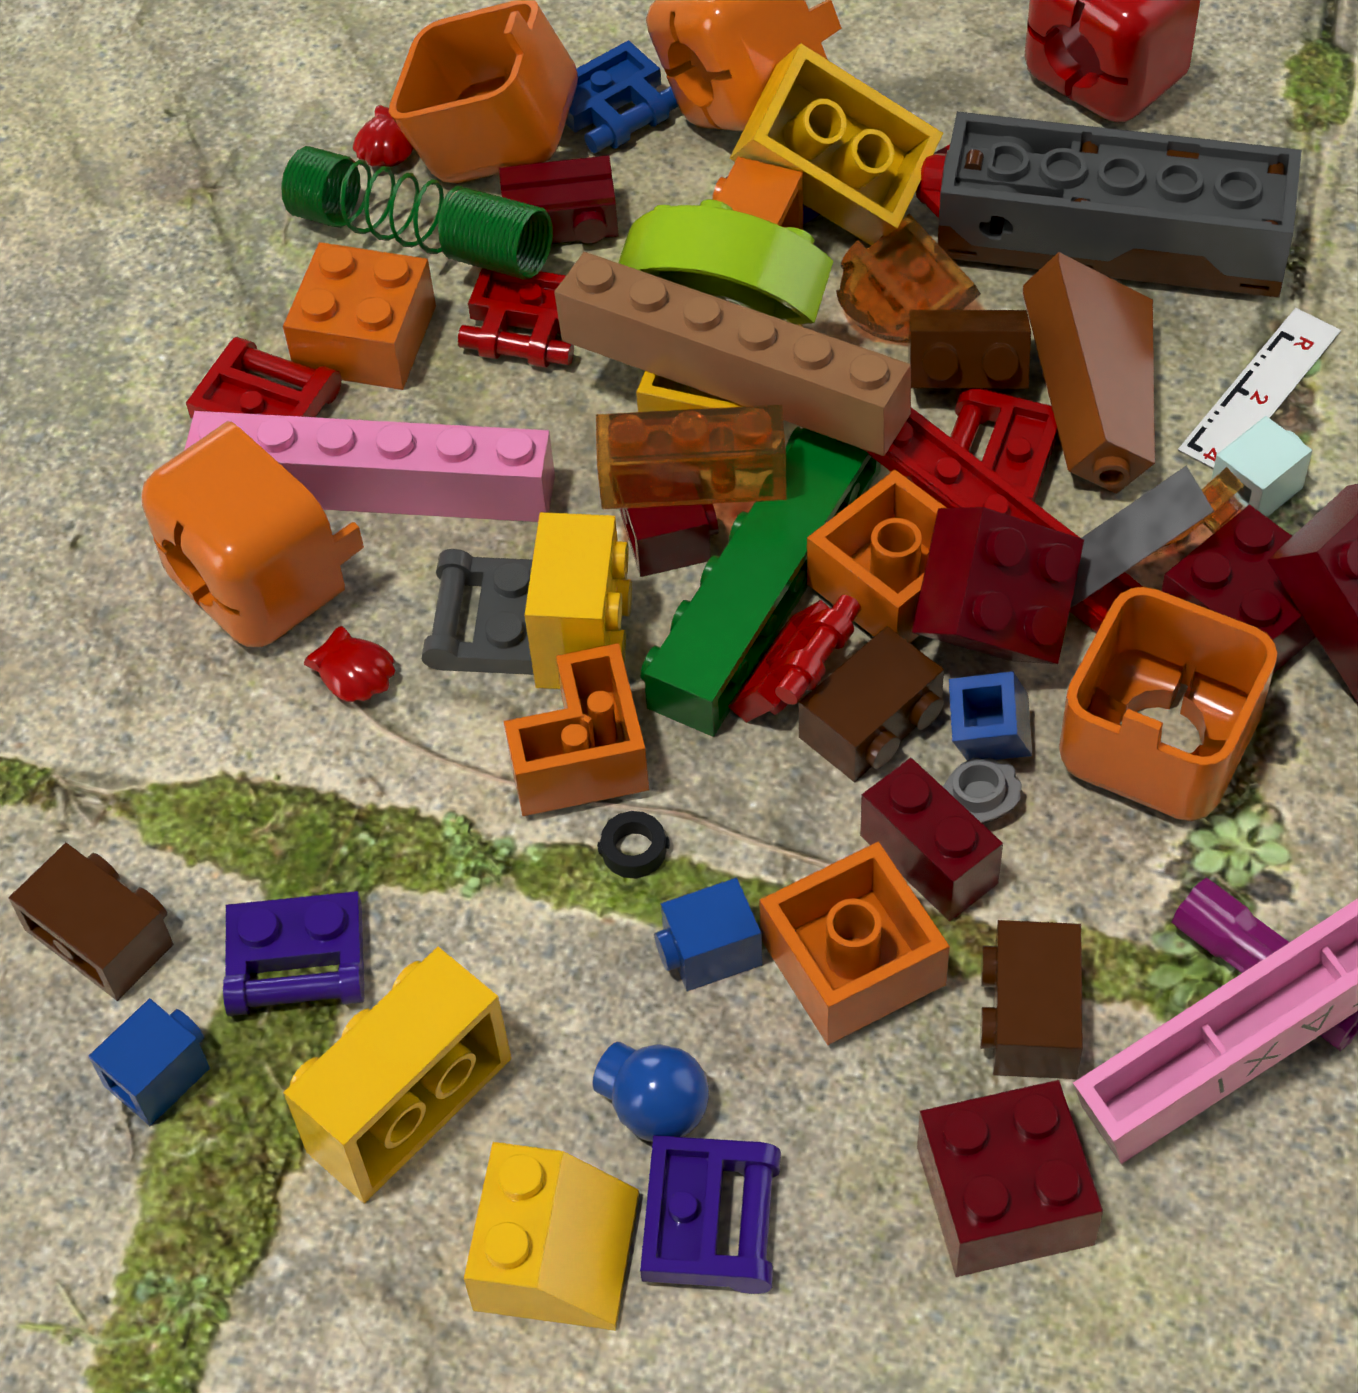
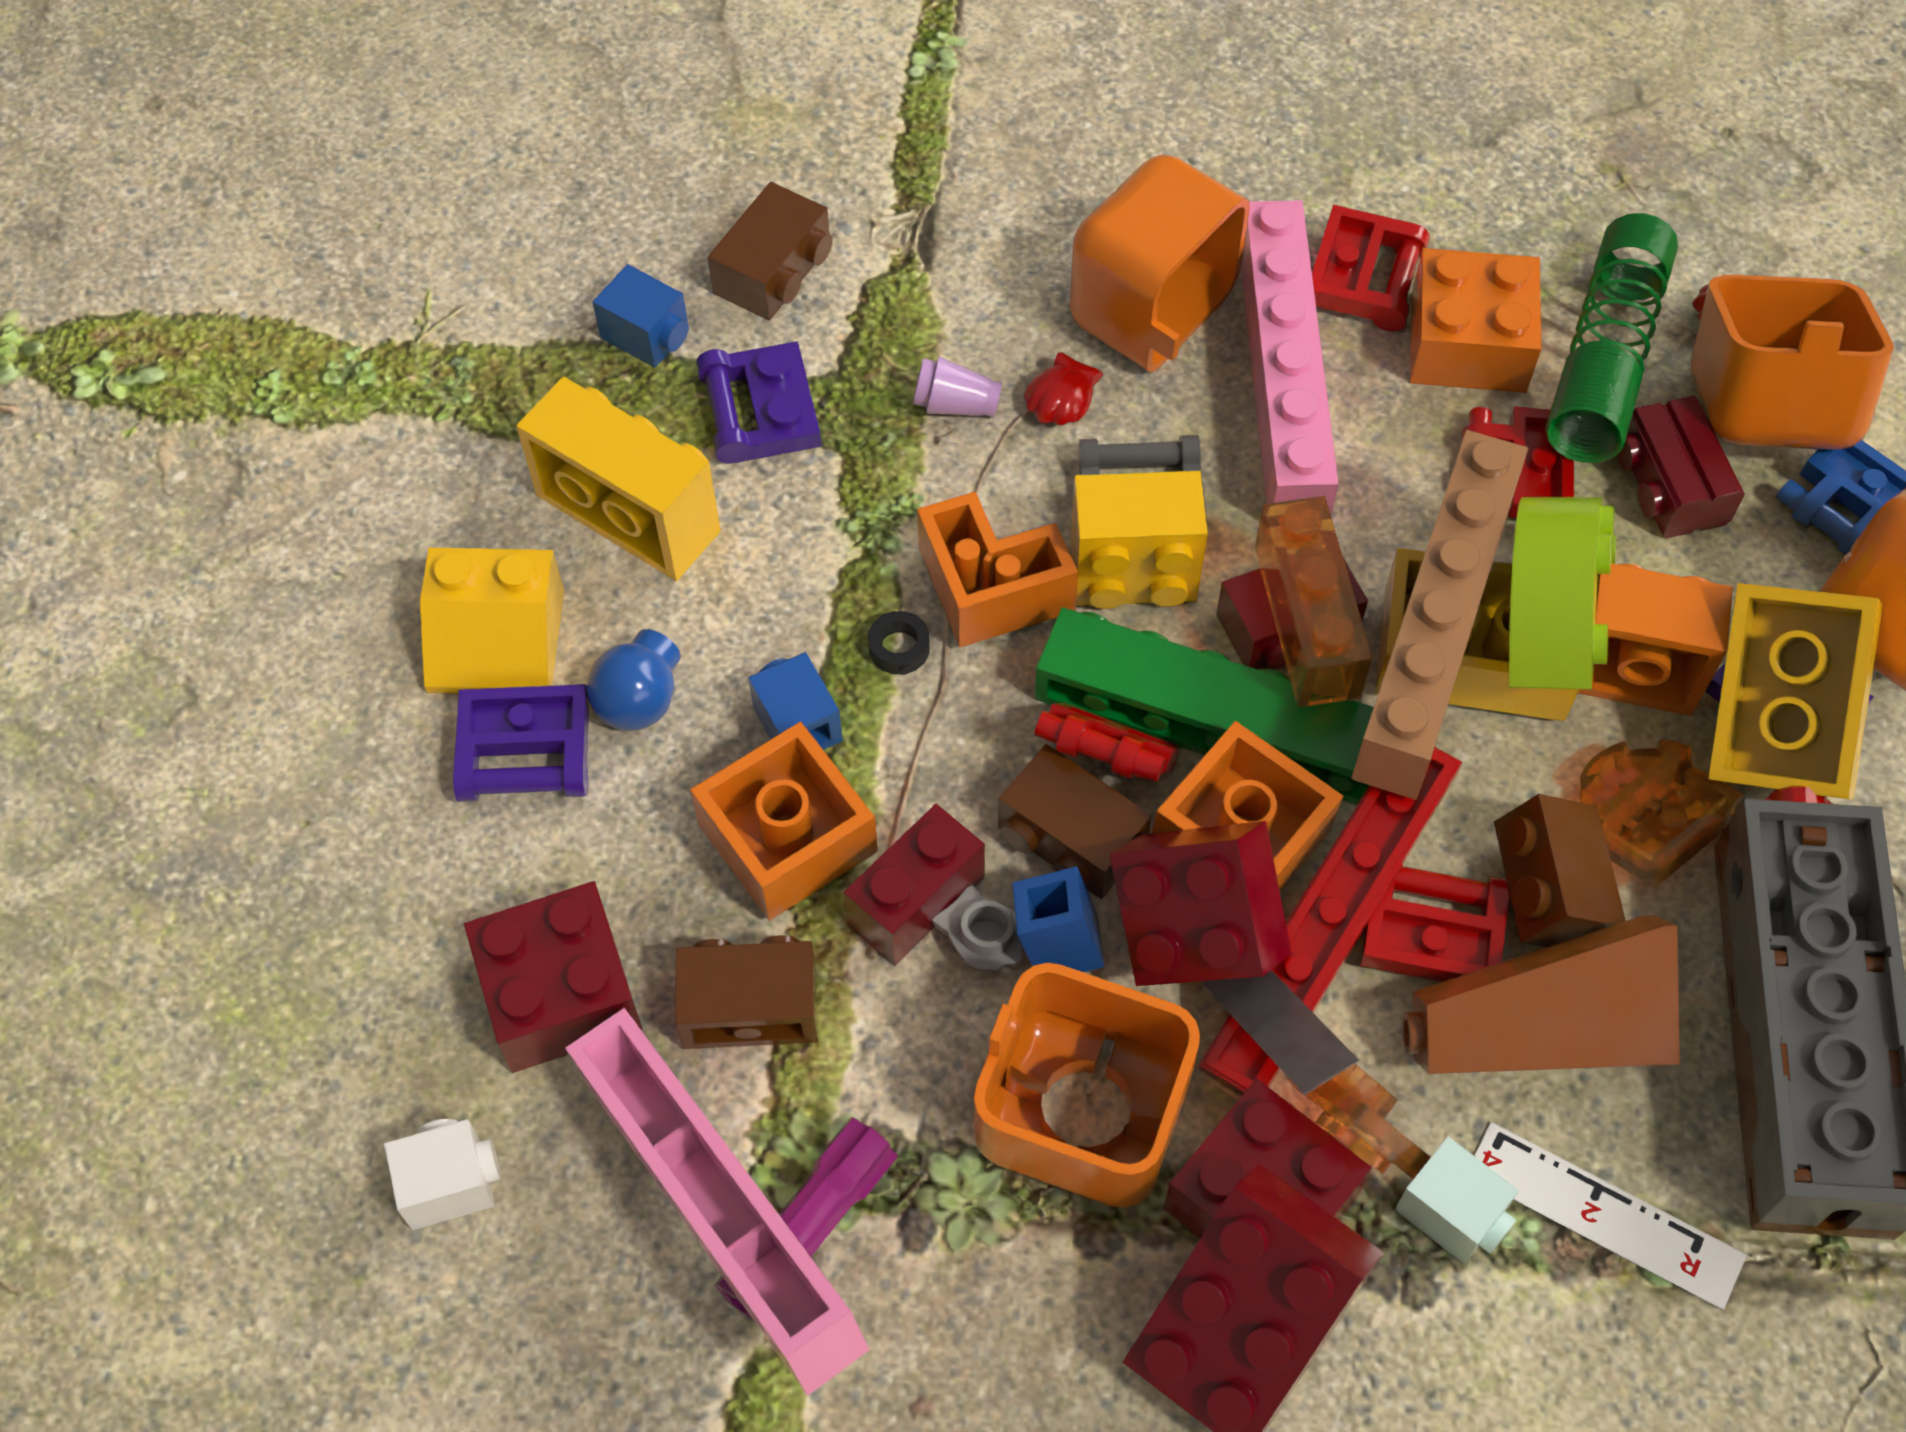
camera: 80 degrees right, 5 degrees up
(330, 761) = (955, 390): none -> lavender cone
(1220, 1296) = (442, 1172): none -> white brick

